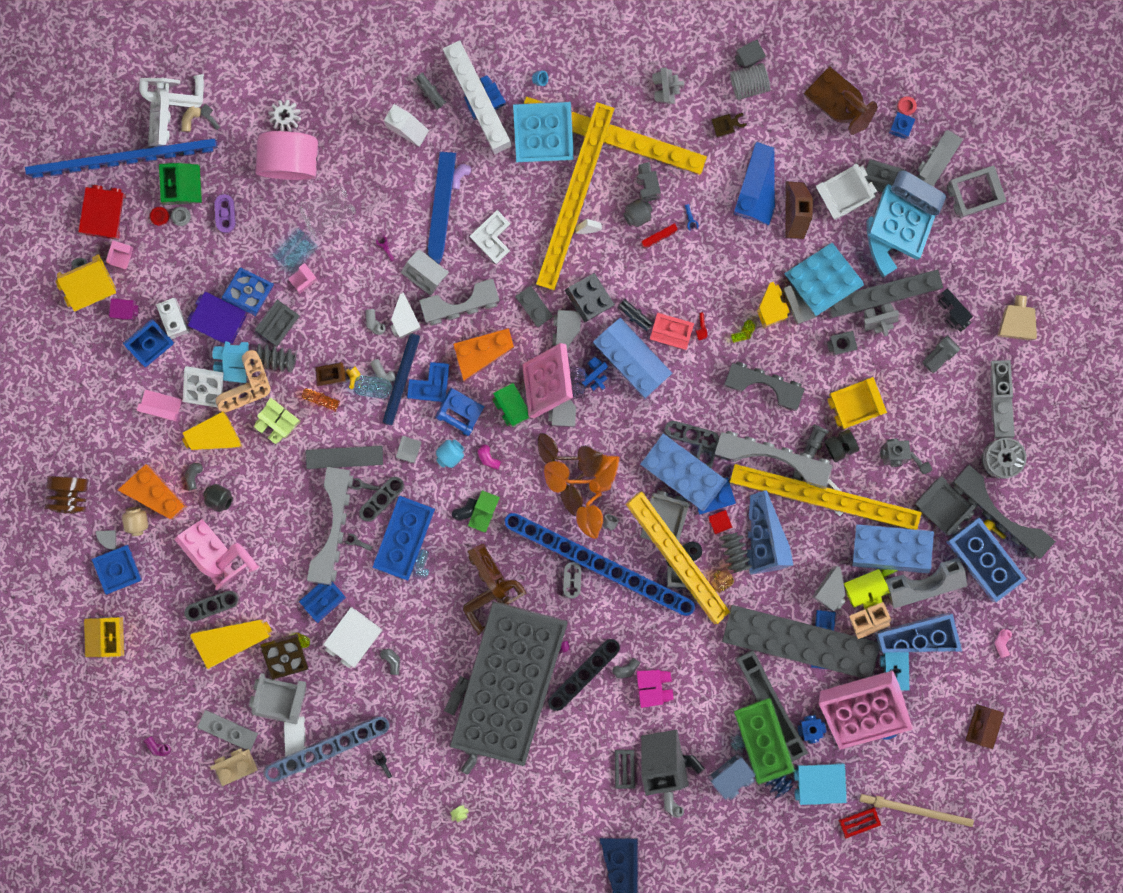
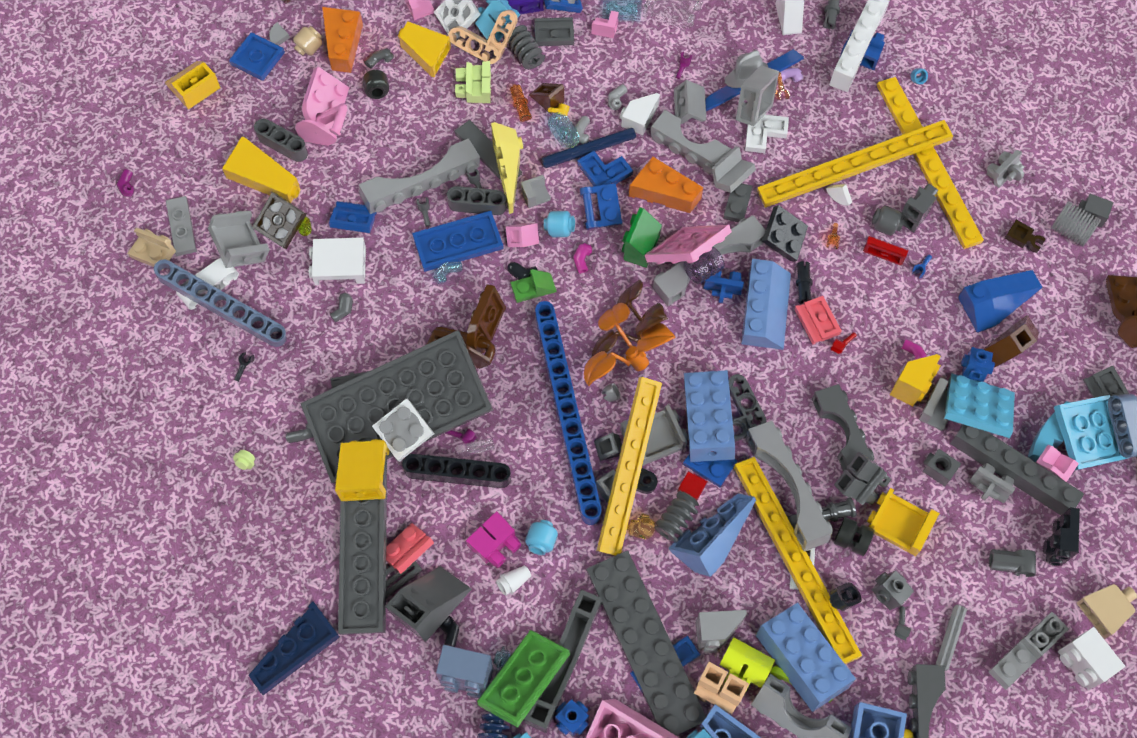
camera: 55 degrees right, 20 degrees down
(366, 449) = (507, 154): none -> light yellow wedge
(432, 206) = (745, 67): none -> light grey piece
(436, 487) = (522, 235): none -> bright pink panel
(466, 223) = (760, 93): none -> light grey window
(468, 192) = (781, 88): none -> clear orange hand
(509, 292) = (731, 170): none -> light grey panel
(531, 692) = (403, 429): none -> light grey piece
(539, 742) = (361, 470): none -> yellow panel
(543, 131) = (882, 104): medium azure plate -> none
(575, 648) = (476, 447): none -> clear piece
(577, 580) = (536, 404): light grey beam -> none
(586, 776) = (363, 565): none -> dark grey plate
(612, 750) = (407, 548): none -> coral plate
(618, 262) = (833, 238): none -> clear orange hand
(626, 671) = (489, 507): dark grey arm -> none
(647, 555) = (608, 446): none -> dark grey slope
(671, 807) = (393, 644): light grey arm -> none
(676, 654) = (541, 537): none -> medium azure head
(690, 695) = (512, 580): none -> white cone
(745, 333) = (872, 381): clear neon green arm -> none
(750, 281) = (913, 348): none -> dark pink arm
(794, 258) = (977, 364): none -> blue brick
(810, 407) = (862, 479): none -> dark grey hips
(847, 191) = (1068, 369): white panel -> none
(876, 488) = (845, 596): none -> black plate
(905, 268) = (1057, 463): none -> bright pink panel
(944, 506) = (885, 676): dark grey panel -> none
(954, 440) = (951, 636): none -> light grey axle
(993, 458) = (974, 706): light grey wheel -> none
(1039, 367) = (1090, 659): none -> white brick

